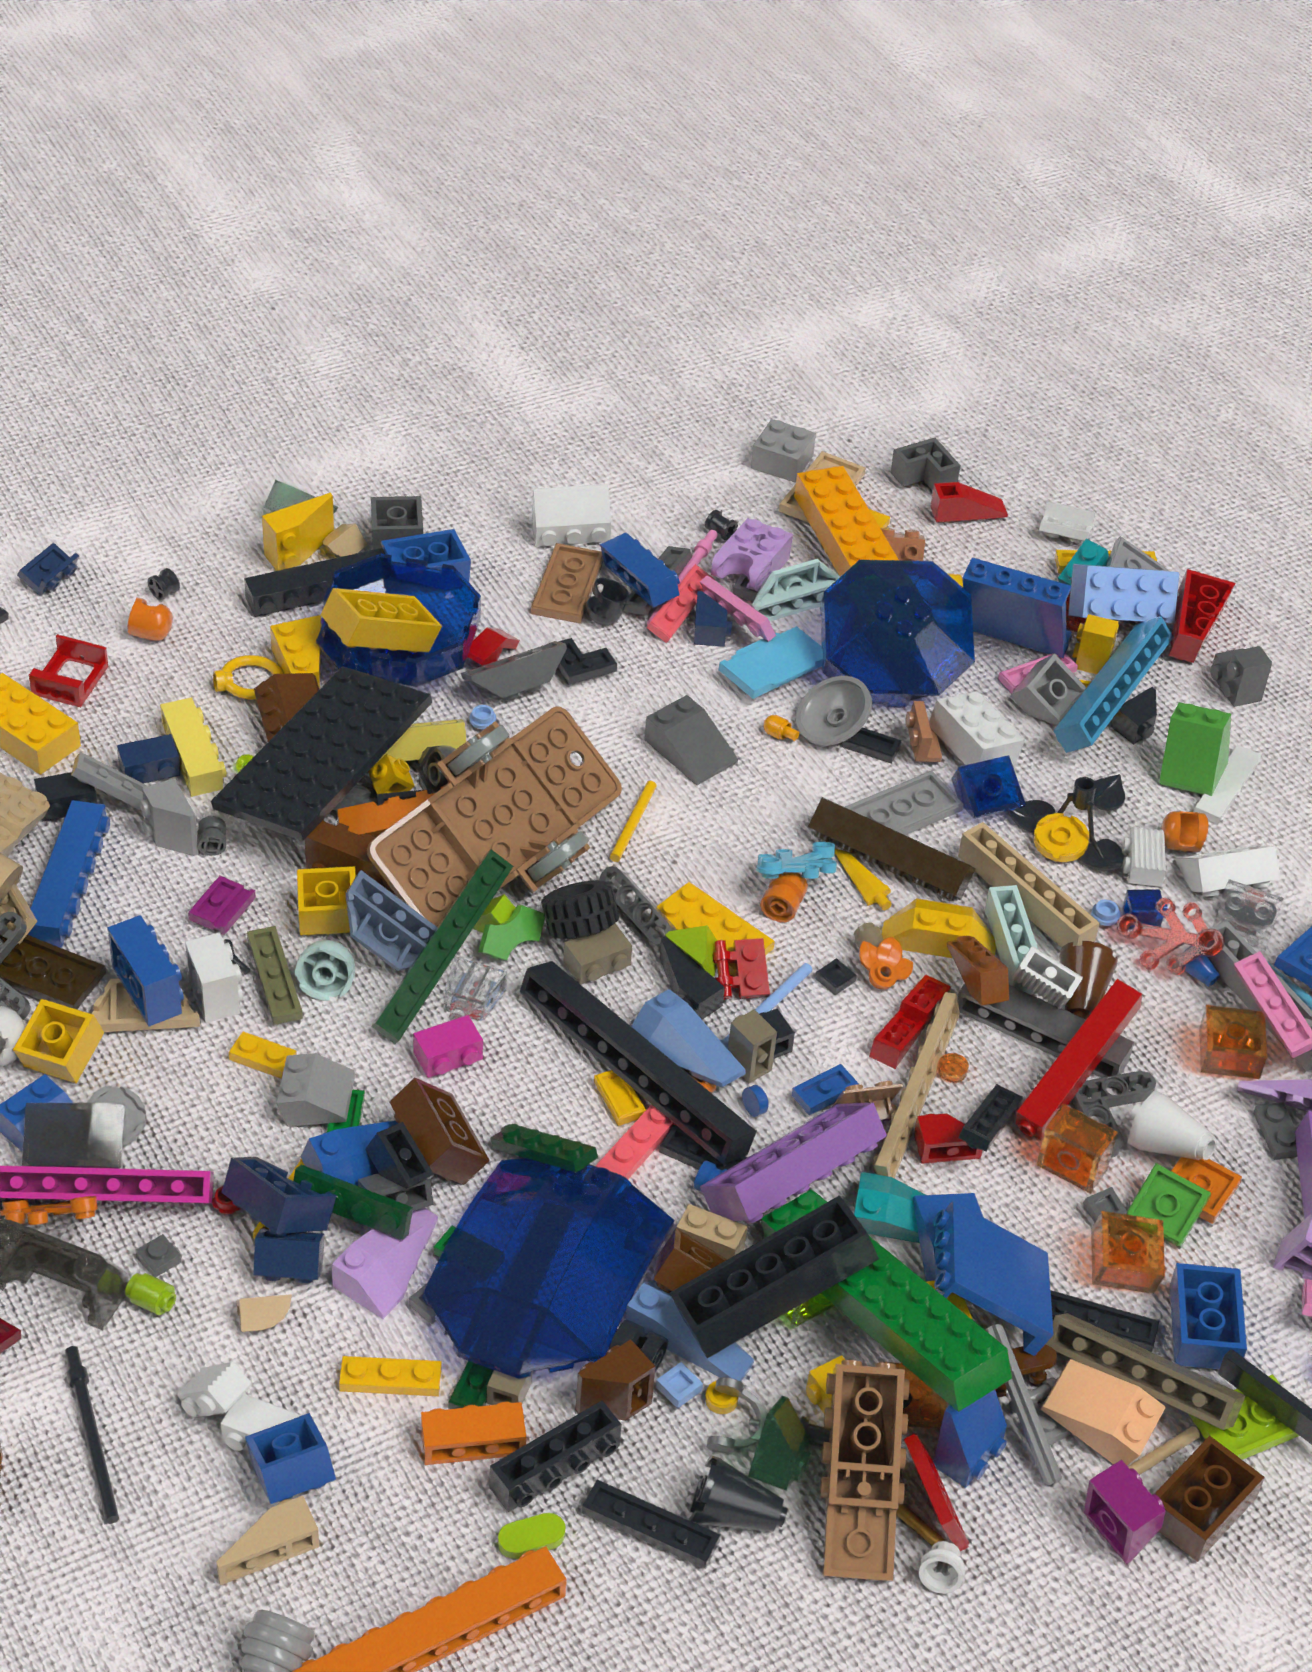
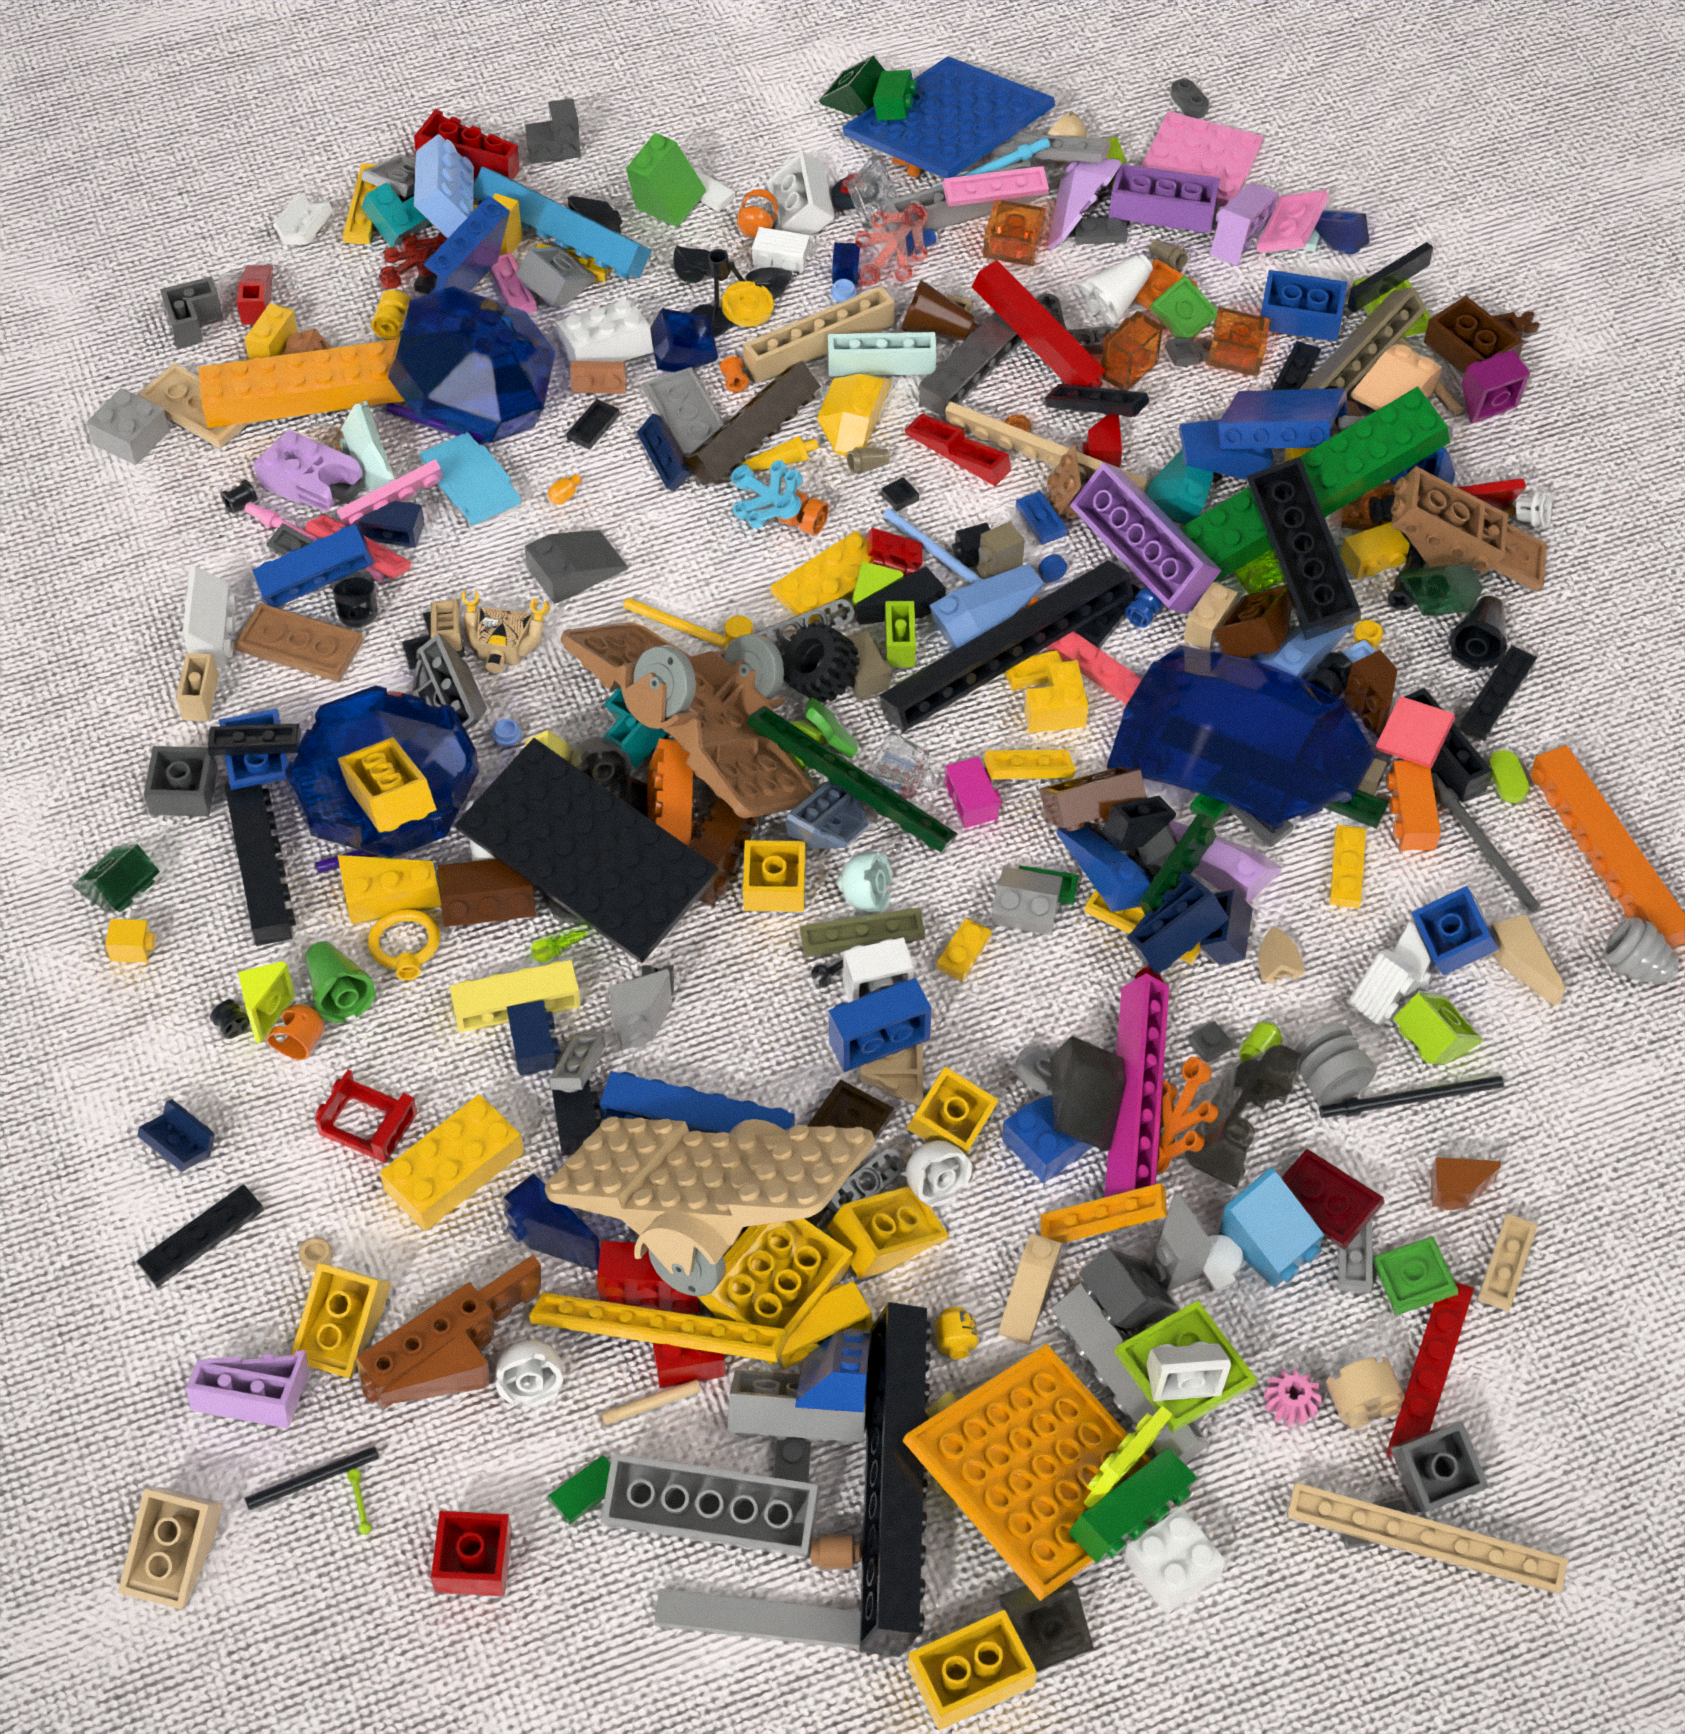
camera: 80 degrees left, 10 degrees up
(121, 1341) = (1334, 1064): none -> light grey wheel
(174, 588) = (266, 996): none -> neon yellow slope
(174, 1454) = (1436, 1028): none -> lime slope
(197, 634) = (337, 983): none -> bright green cone
(221, 905) = (759, 975): magenta plate -> none
(238, 520) = (129, 940): none -> yellow brick
(297, 531) = (186, 878): yellow slope -> none
(345, 540) = (185, 839): tan brick -> none
(419, 1515) = (1449, 799): none -> dark grey bar
(429, 542) = (253, 739): none -> black tile
(484, 1086) = (1029, 764): none -> yellow plate
(497, 521) = (197, 687): none -> tan brick
(544, 1147) = (1117, 718): dark green plate -> none
(553, 1412) = (1415, 732): none -> coral tile
(574, 1113) = (1059, 704): none -> yellow brick
(589, 658) = (447, 624): none -> tan slope
(591, 696) = (503, 634): none -> tan torso
(633, 864) = (738, 626): none -> yellow tile
(635, 975) = (900, 634): none -> lime brick
(735, 1388) = (1399, 611): flat silver piece -> none
(834, 710) = (560, 418): light grey dish -> none
(843, 791) = (663, 452): none -> dark blue plate
(885, 958) = (896, 452): orange plate -> none
(915, 515) = (271, 332): none -> yellow brick
(953, 835) = (735, 378): none -> orange bush
(980, 970) = (933, 375): dark orange slope -> none
(1047, 977) = (956, 326): white brick -> none
(1255, 1549) = (1519, 324): none -> reddish brown plate
(1256, 1193) = (1170, 254): none -> dark tan cone

